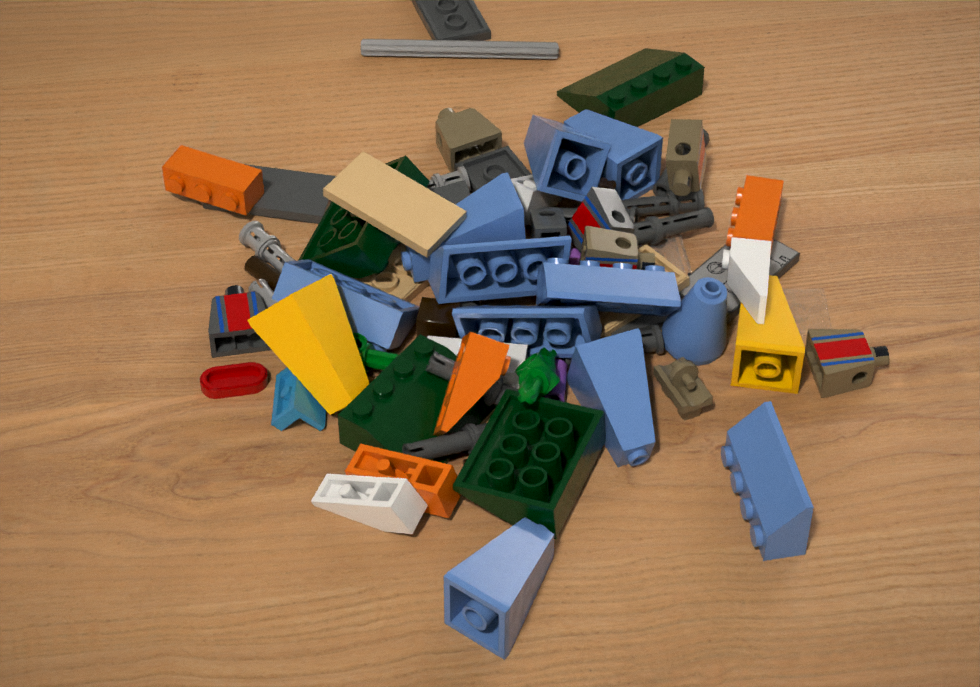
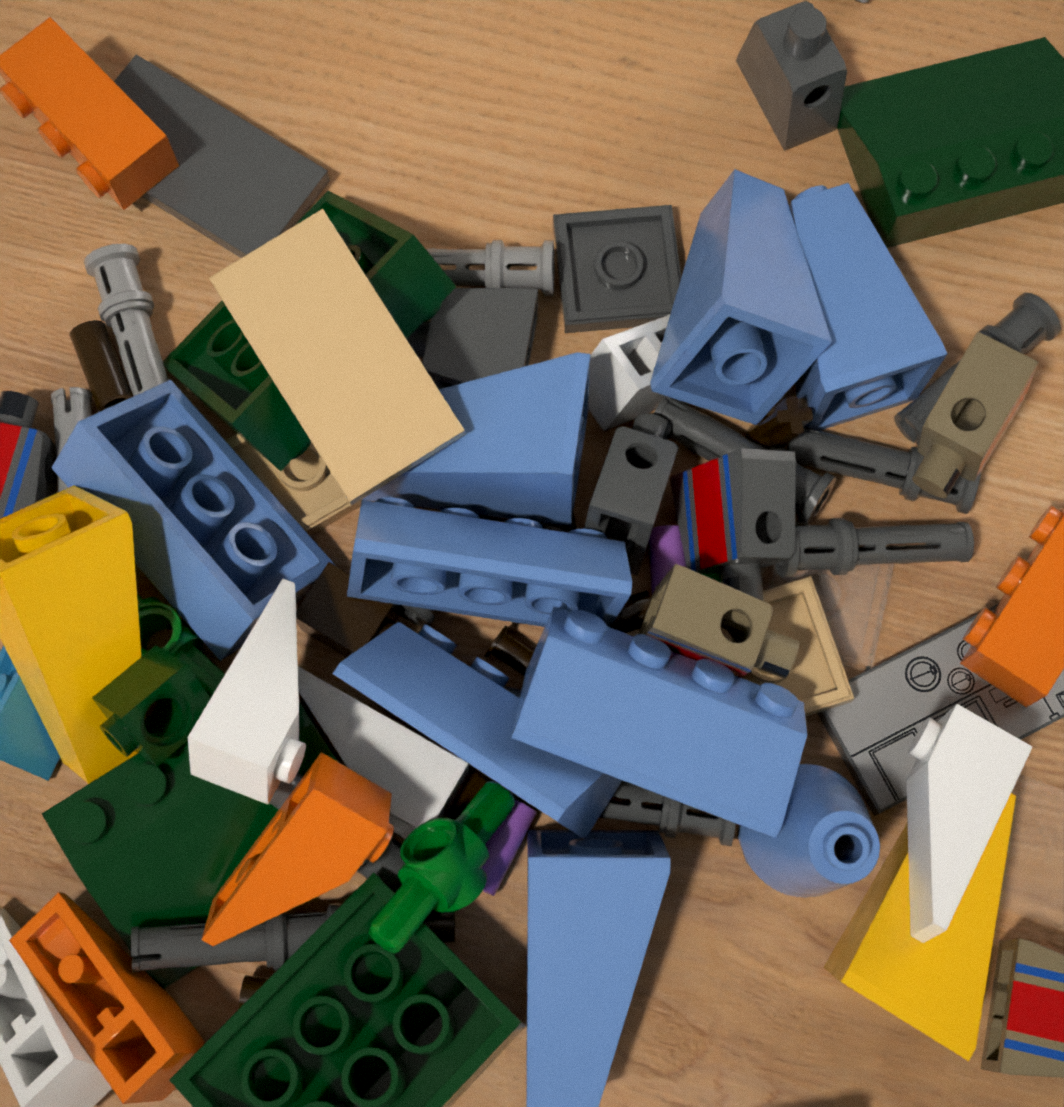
camera: 20 degrees right, 30 degrees up
(373, 355) = (128, 697): none -> dark green brick
(427, 330) = (252, 720): none -> white slope
(465, 135) = (598, 155): dark tan torso -> none
(539, 81) = (794, 63): none -> dark grey torso
(684, 387) = (719, 970): dark tan hips -> none

